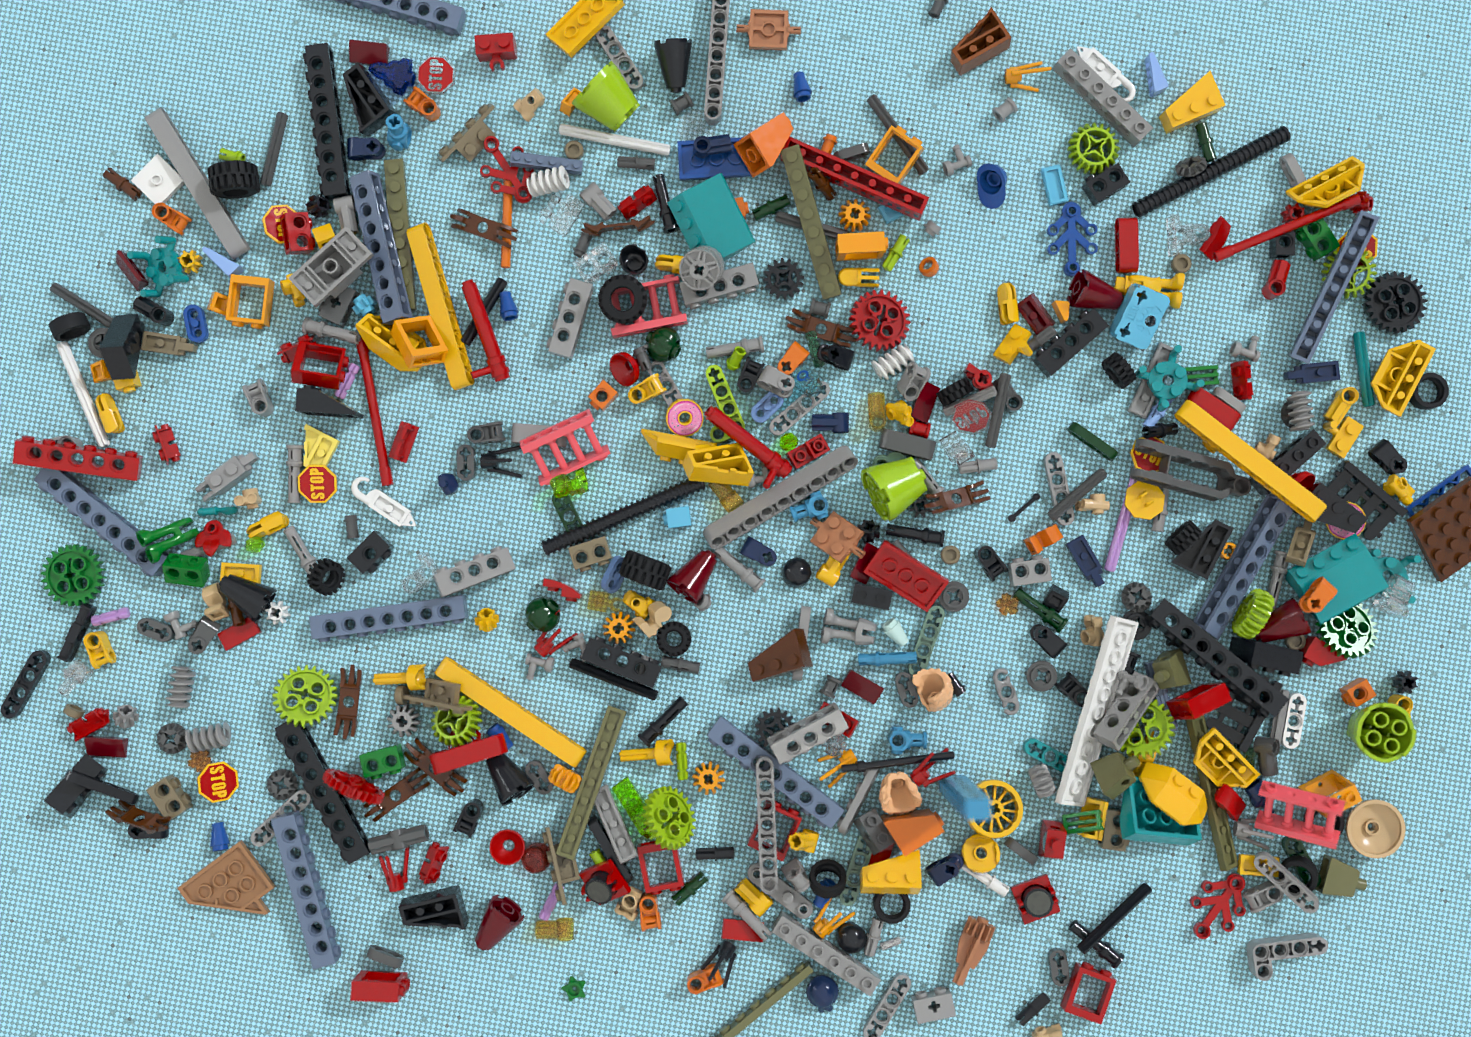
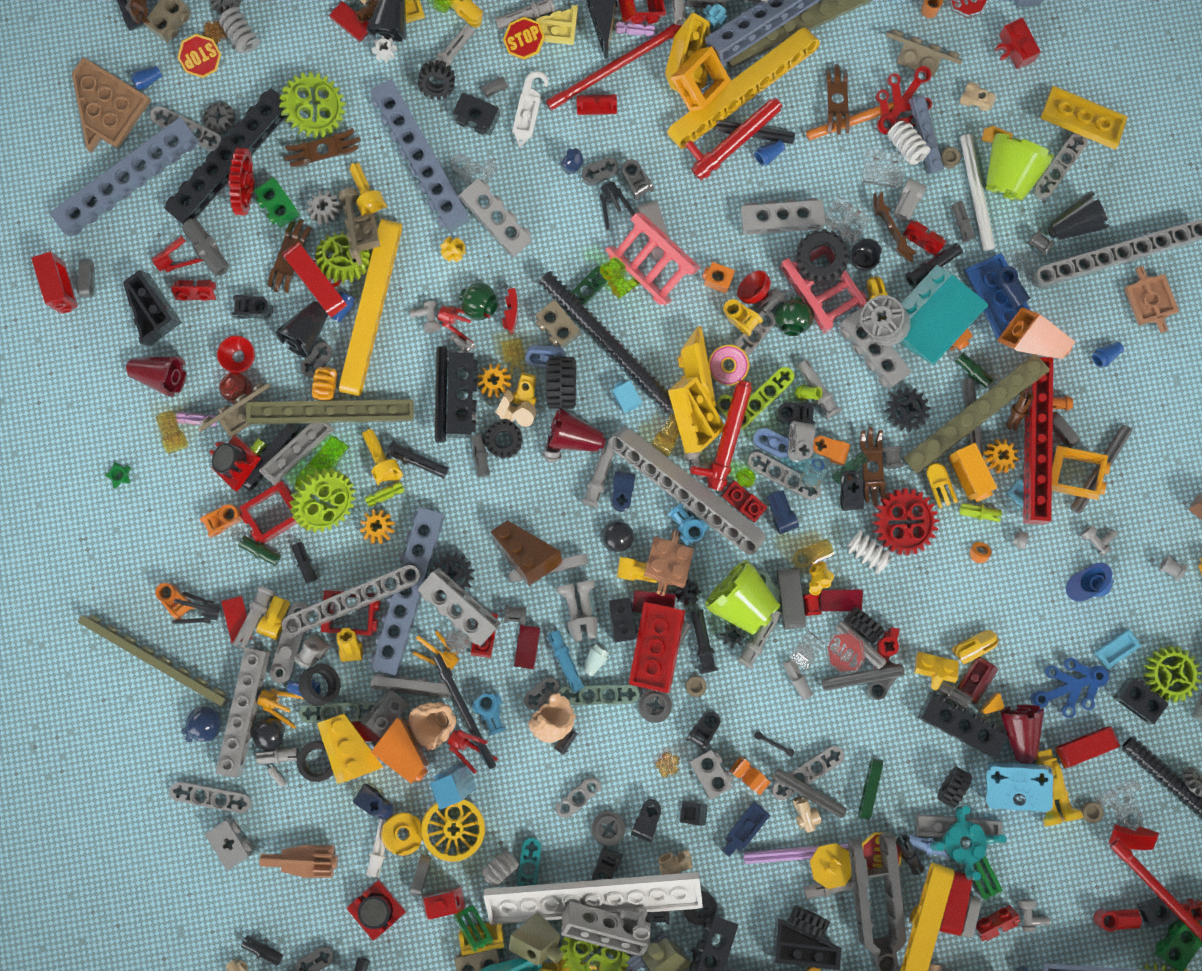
camera: 70 degrees right, 5 degrees down
(406, 790) = (258, 234): reddish brown piece -> none
(582, 245) = (860, 200): dark grey pin -> none
(629, 906) = (222, 495): tan plate -> none
(913, 381) = (861, 578): light grey piece -> none
(967, 498) = (761, 679): reddish brown piece -> none
(1047, 616) = (670, 811): dark green pin -> none
(1129, 600) = (722, 889): dark grey gear -> none

